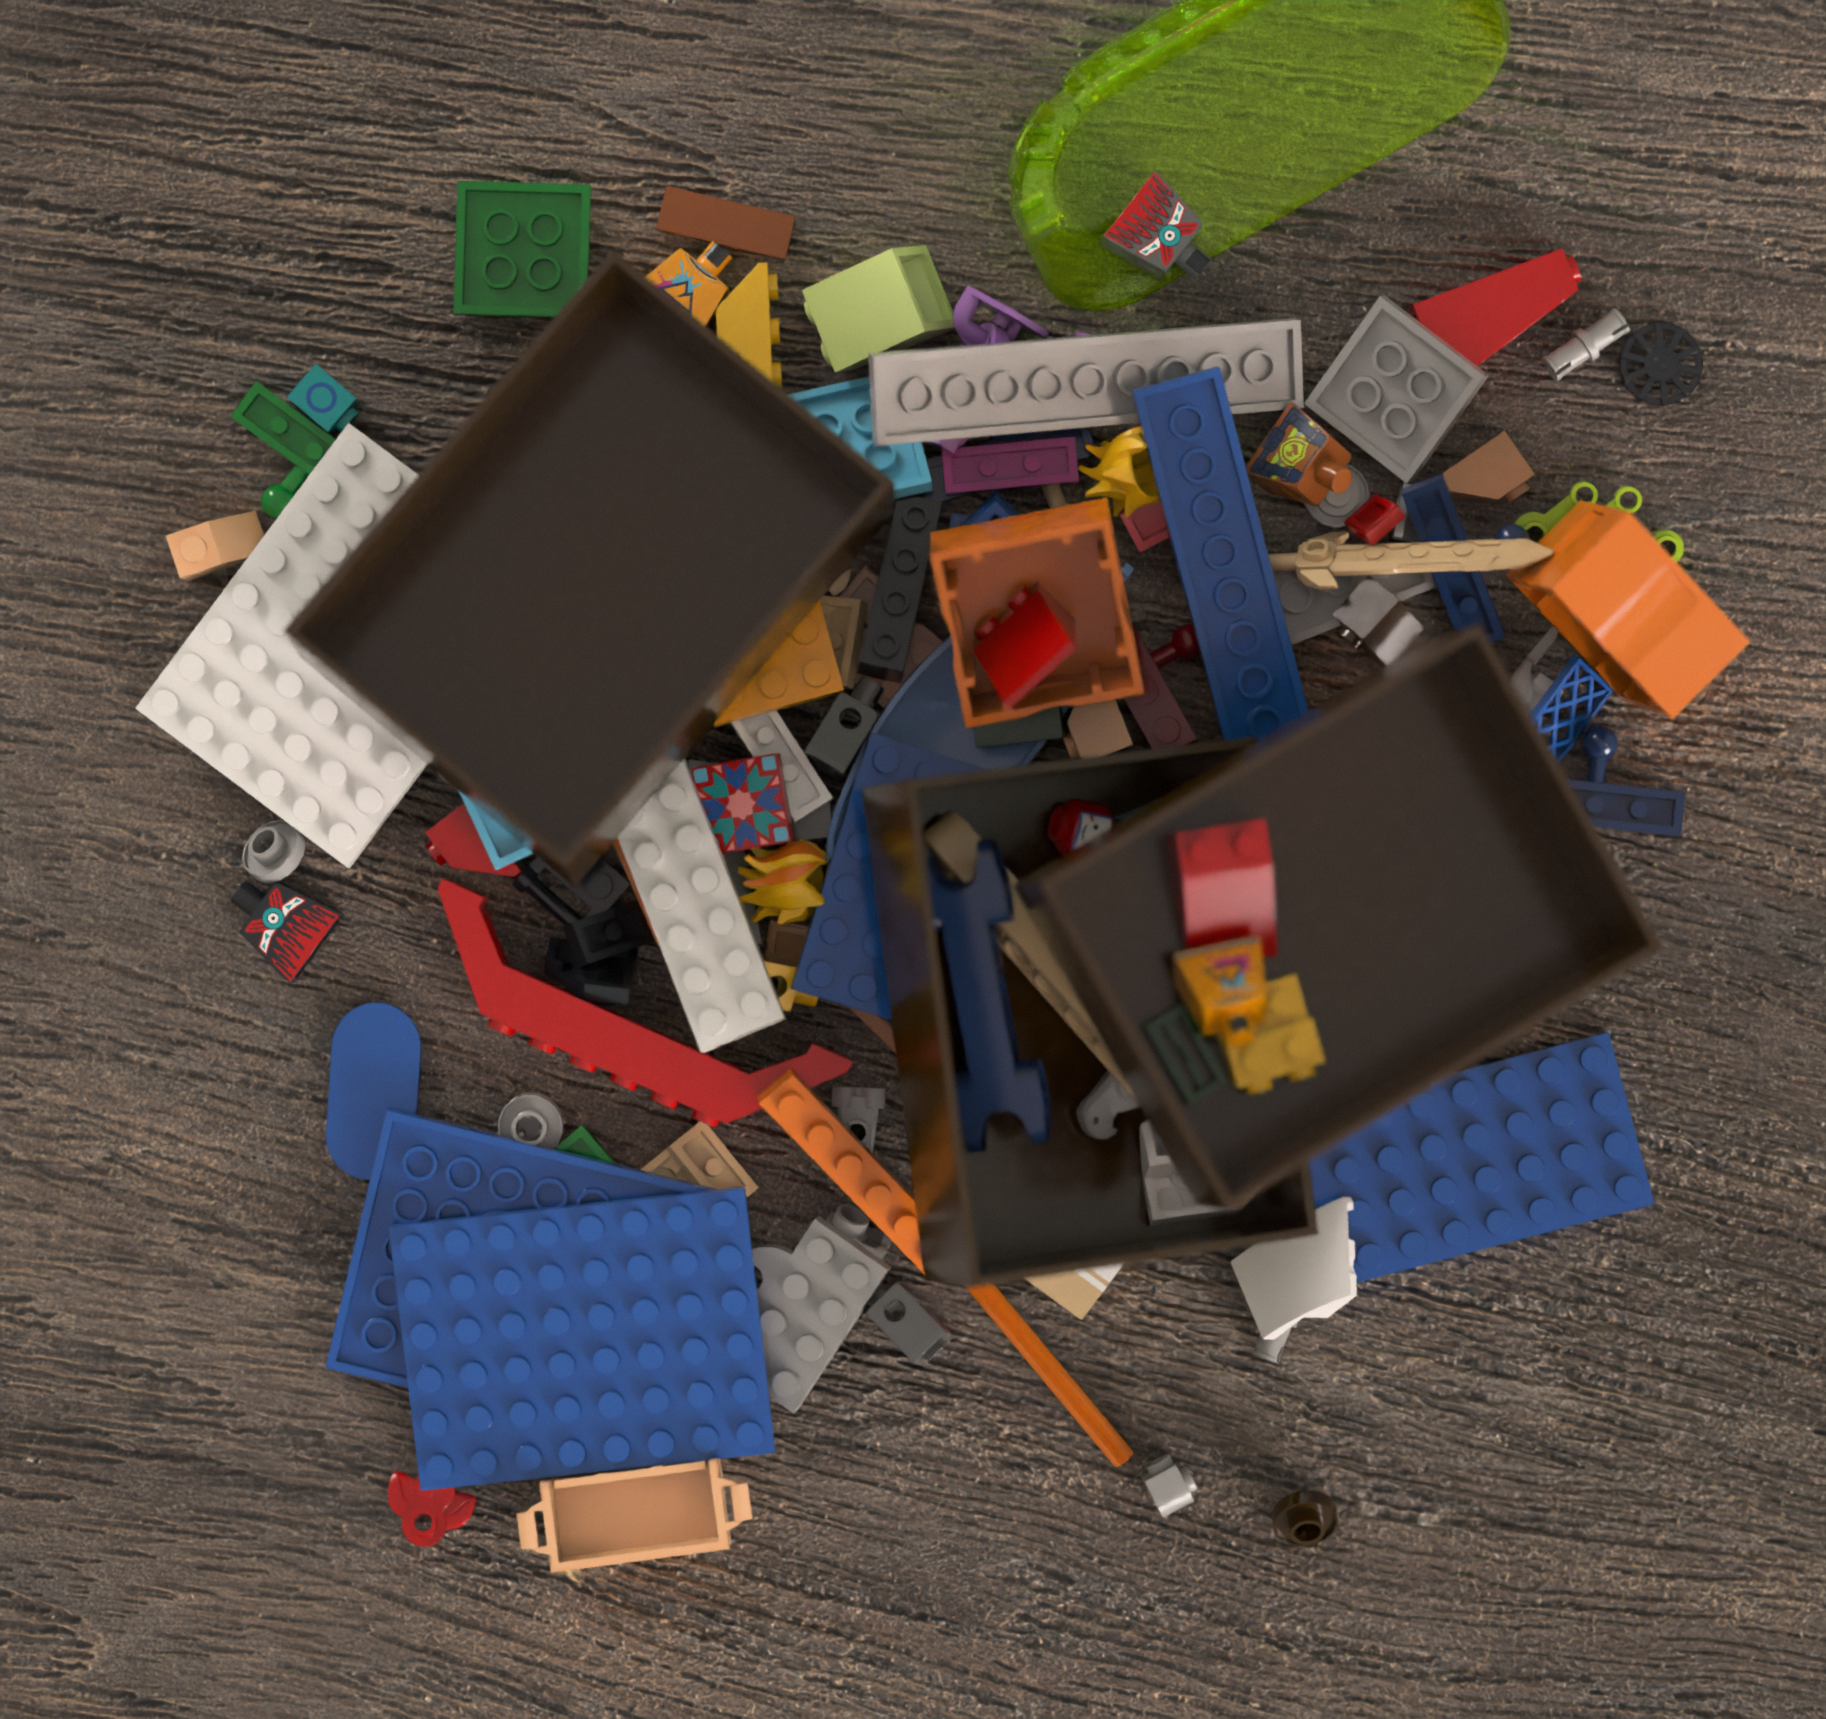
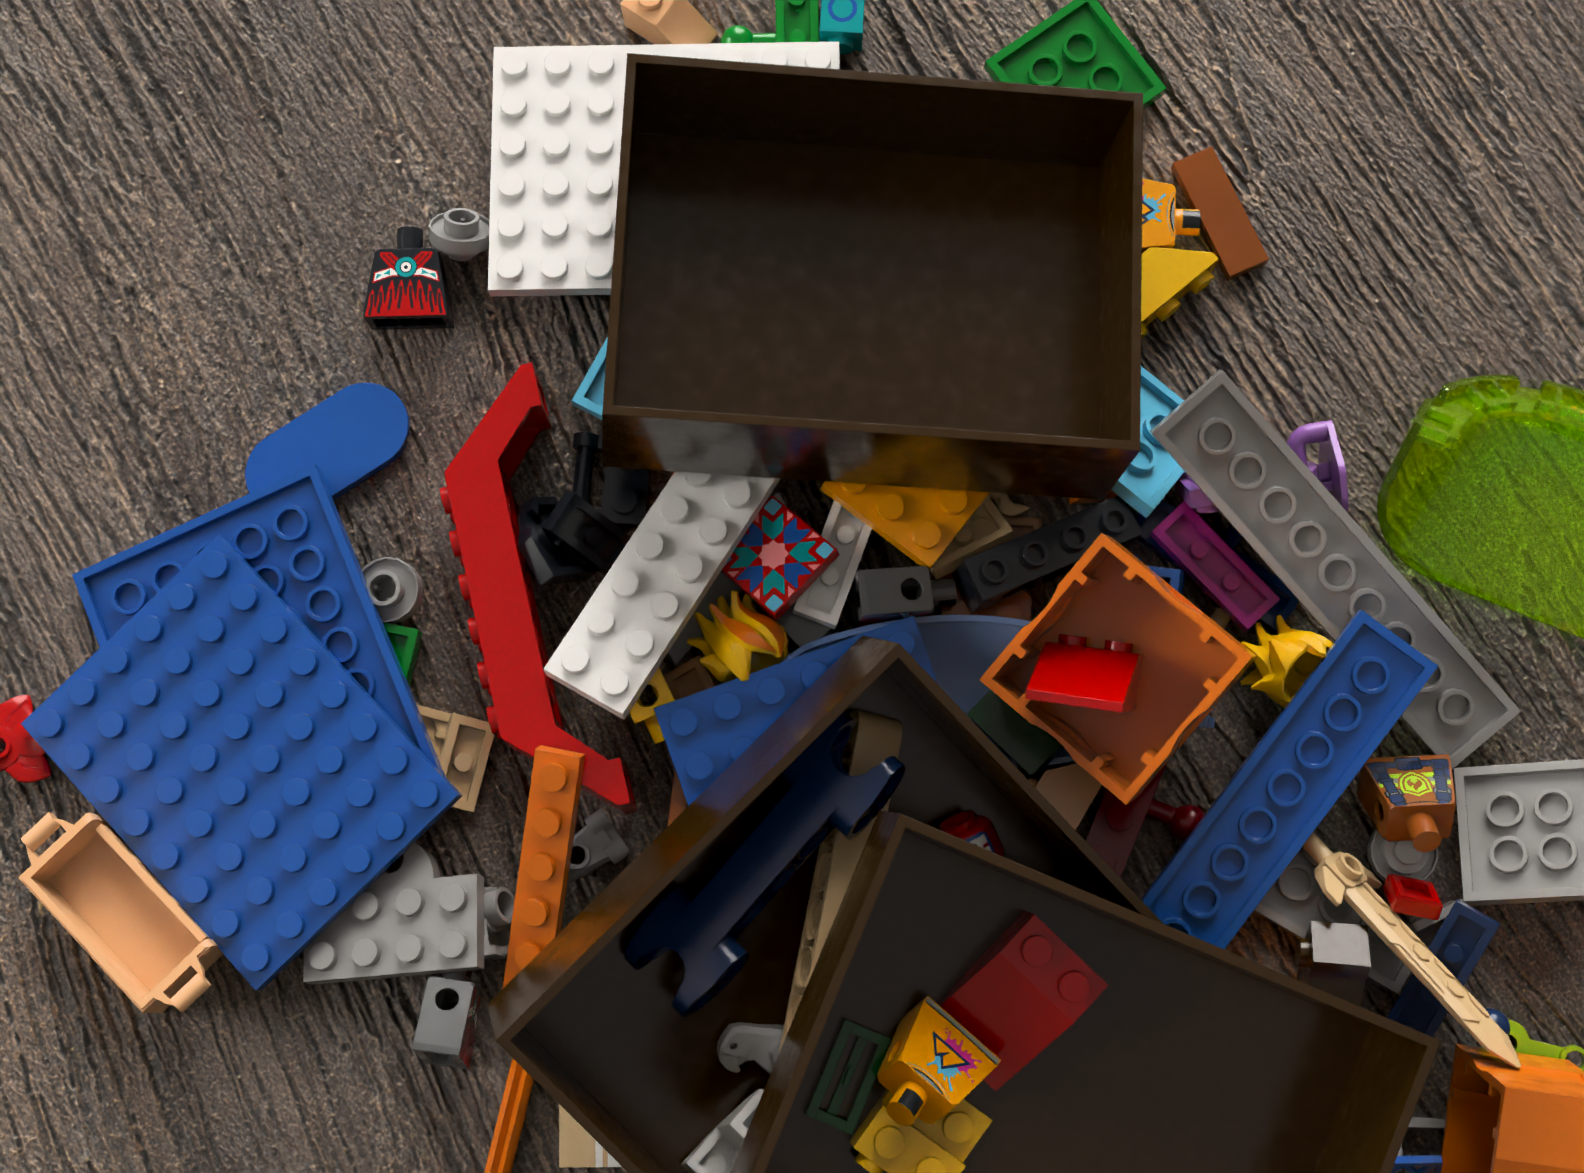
camera: 55 degrees right, 10 degrees down
(459, 844) = (568, 367): red slope -> none
(878, 307) = (1264, 359): yellowish green slope -> none
(1146, 526) = (1254, 713): coral plate -> none
(1157, 231) = (1493, 542): torso -> none
(1490, 472) = (1527, 967): medium nougat slope -> none

